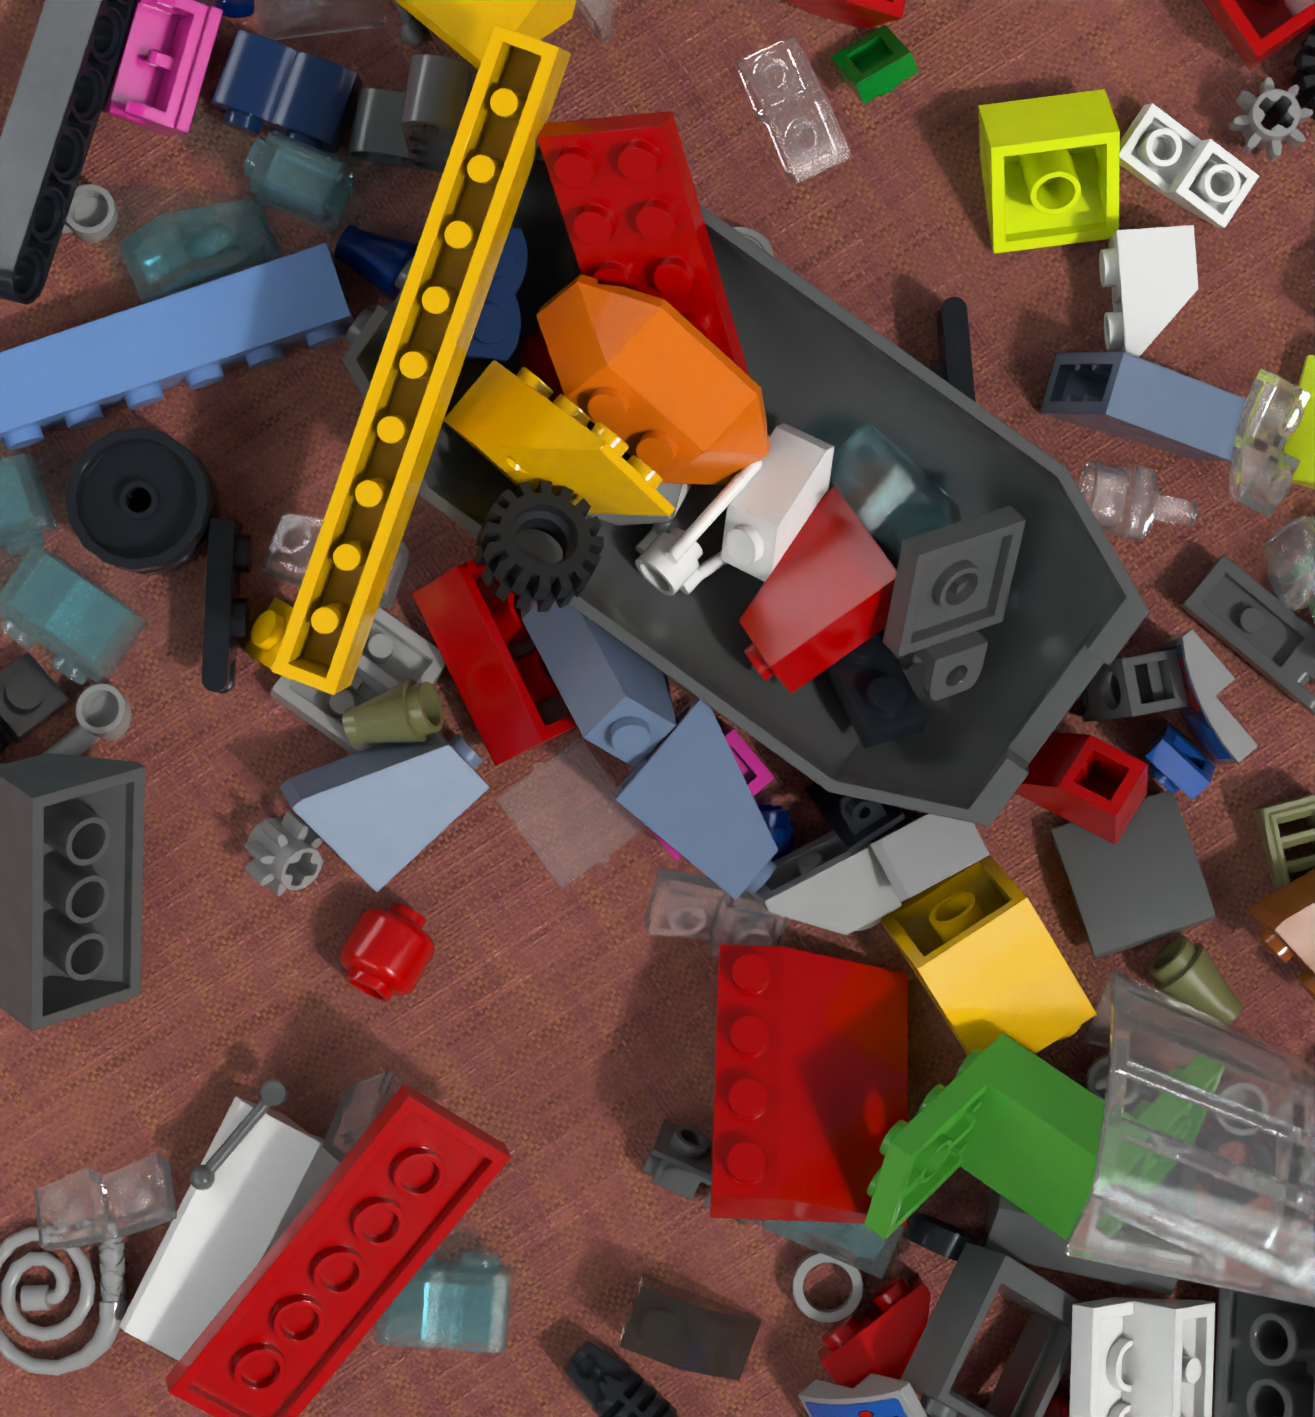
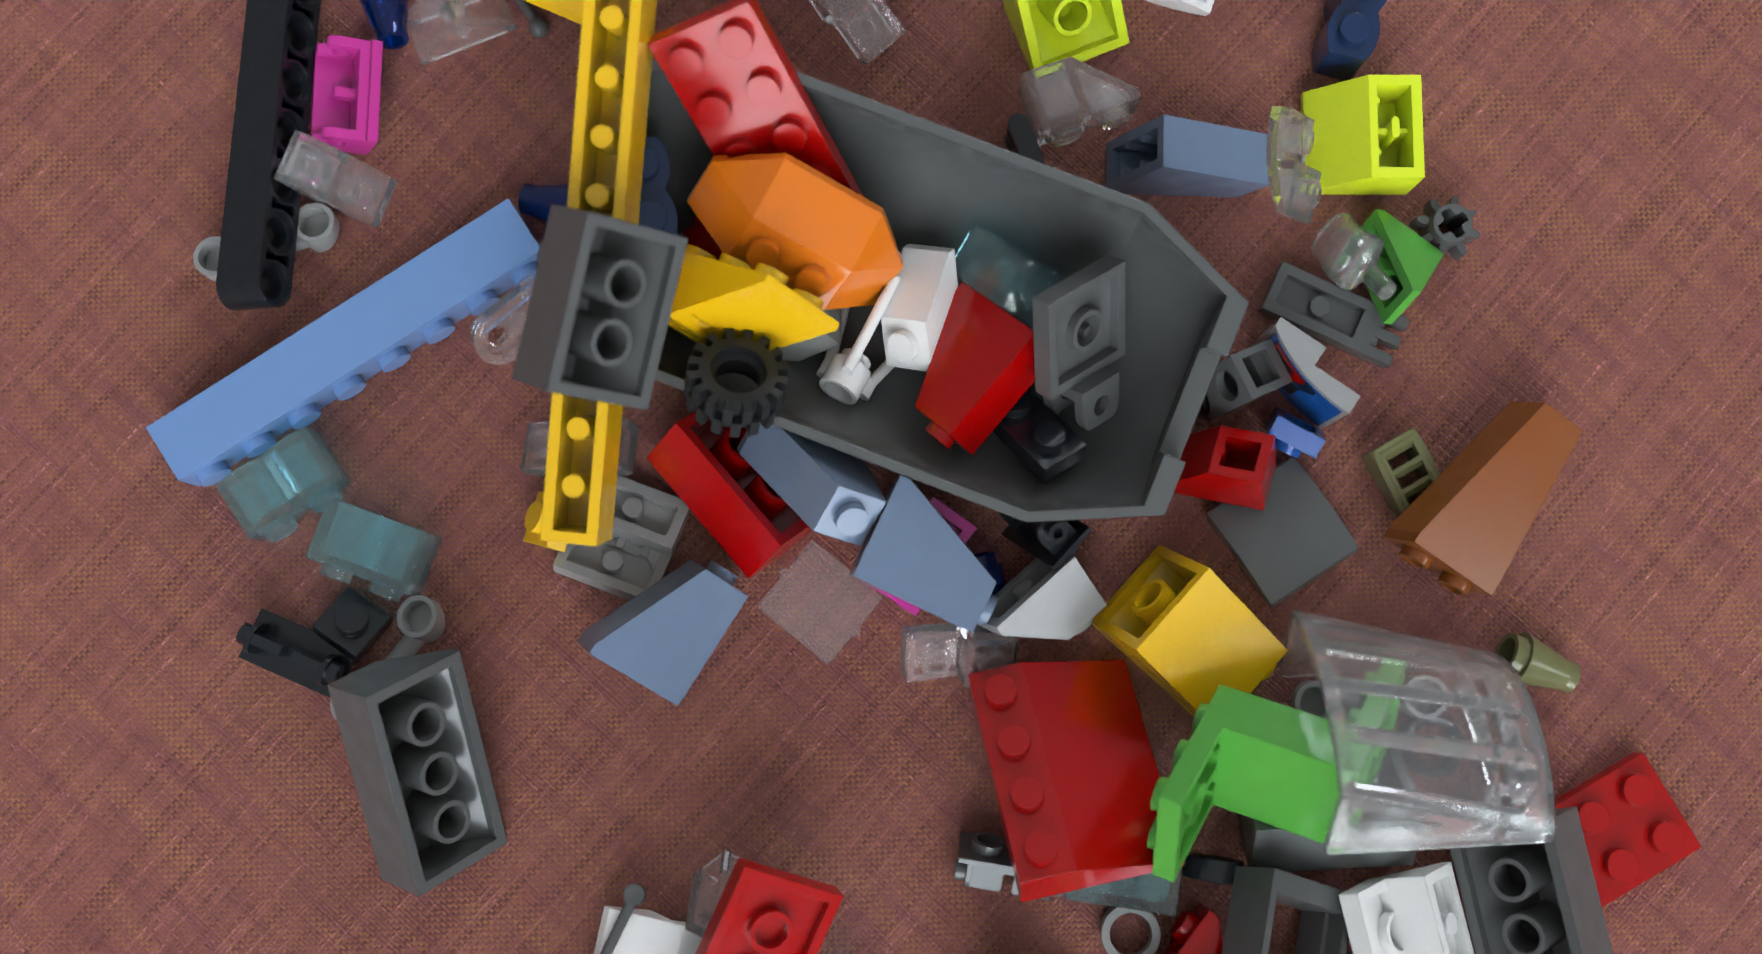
camera: 20 degrees left, 5 degrees down
(107, 485) = (381, 448): black wheel -> none
(127, 163) = (336, 179): none -> clear slope
(197, 247) = (404, 228): clear light blue slope -> none
(225, 612) = (499, 512): black hinge -> none
(284, 854) = (595, 695): light grey gear -> none
(285, 92) = (450, 95): dark blue brick -> none
(299, 180) = (475, 155): clear light blue brick -> none
(303, 390) = (509, 314): none -> clear plate
(387, 952) = (699, 753): red head -> none
(397, 715) = (659, 557): olive cone -> none
(405, 433) = (599, 308): none -> dark grey slope
(417, 125) = (545, 96): dark grey beam -> none
(927, 852) = (1117, 552): light grey slope -> none
(1027, 291) = (1073, 98): none -> clear slope
(1129, 500) = (1203, 234): clear piece -> none
(1150, 282) = (1163, 64): white slope -> none
(1192, 978) = (1352, 600): olive cone -> none

